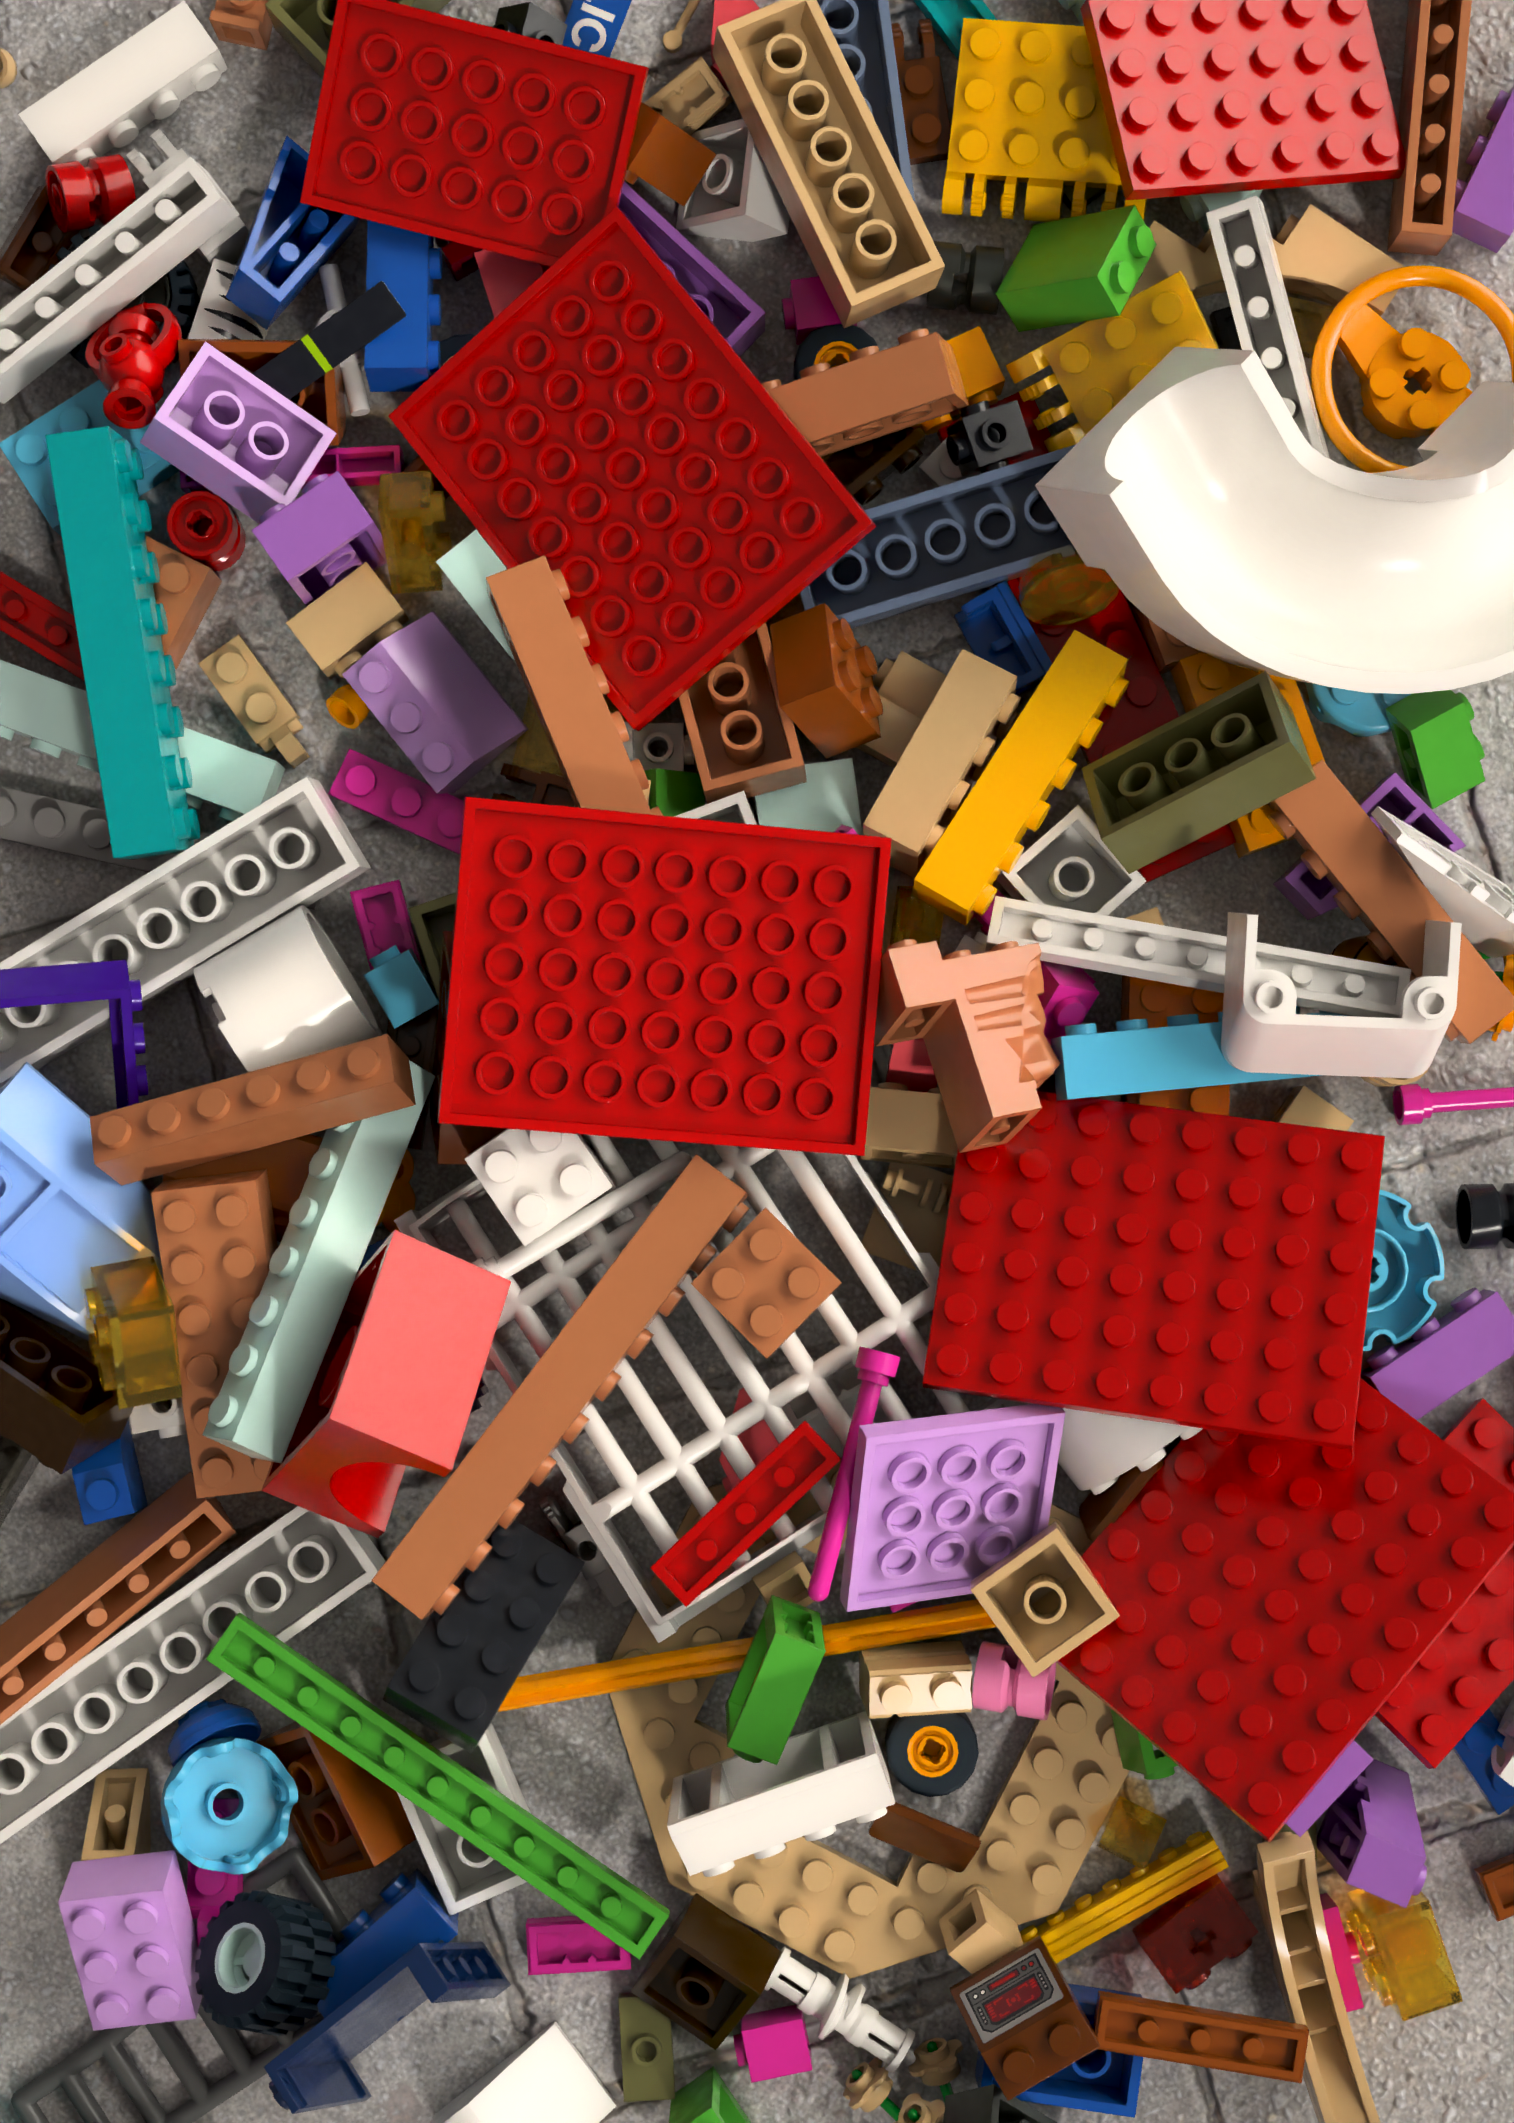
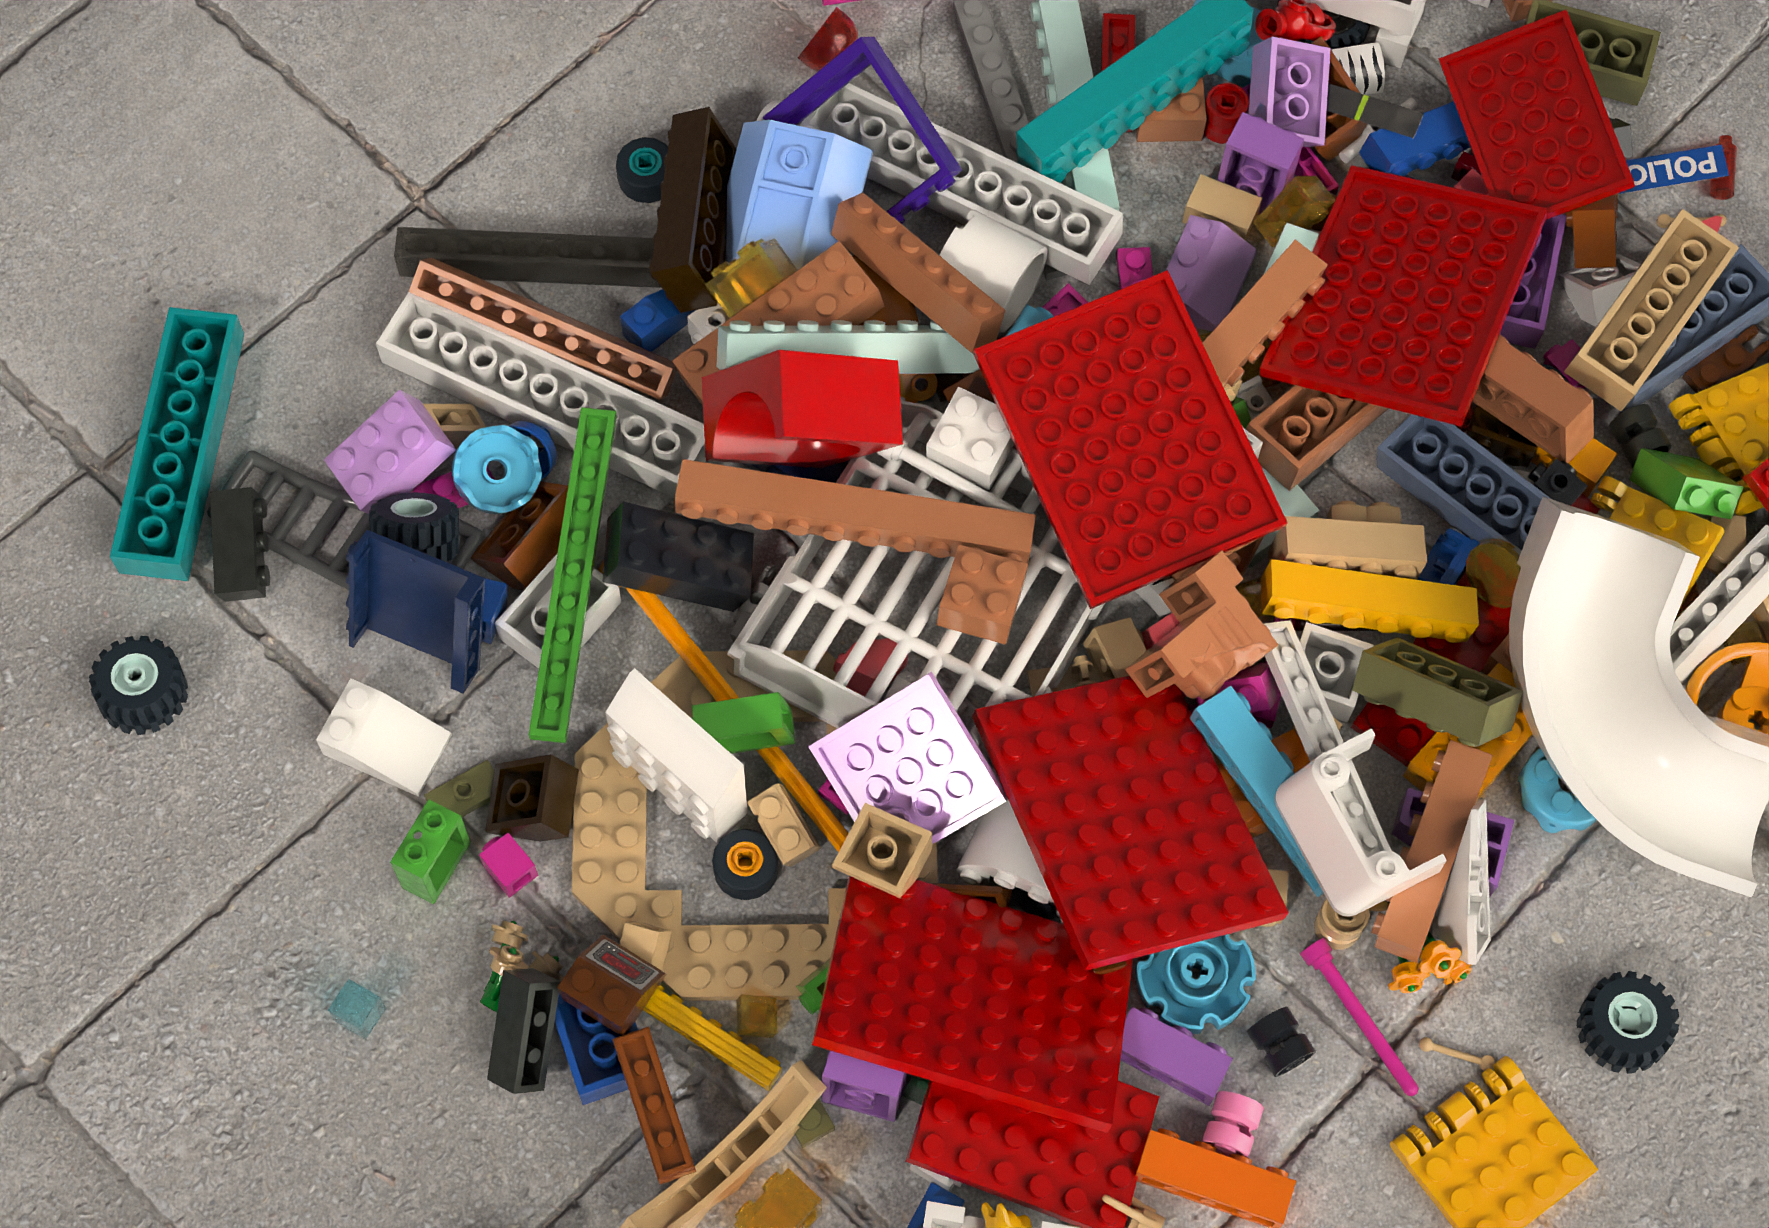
camera: 60 degrees right, 20 degrees down
(255, 699) = (1146, 187): tan hinge -> none
(285, 241) = (1409, 71): blue wedge -> none
(347, 707) = (1171, 234): light orange hinge -> none
(571, 1946) = (508, 718): dark pink plate -> none
(691, 97) = (1635, 240): tan plate -> none
(745, 1513) = (838, 650): red plate -> none
(786, 1580) = (804, 720): tan plate -> none
(826, 680) = (1354, 465): dark orange brick -> none
(840, 2010) = (548, 889): white piece -> none
(874, 1371) = (965, 682): dark pink piece -> none
(925, 1837) = (689, 881): reddish brown slope -> none
(1004, 1682) = (818, 884): bright pink wheel -> none
(1176, 1953) = (704, 1072): clear red brick -> none
(1344, 1954) = (748, 1187): dark pink plate -> none
(1376, 1835) = (845, 1155): medium lavender wedge -> none
(1437, 744) = (1547, 843): bright green brick -> none

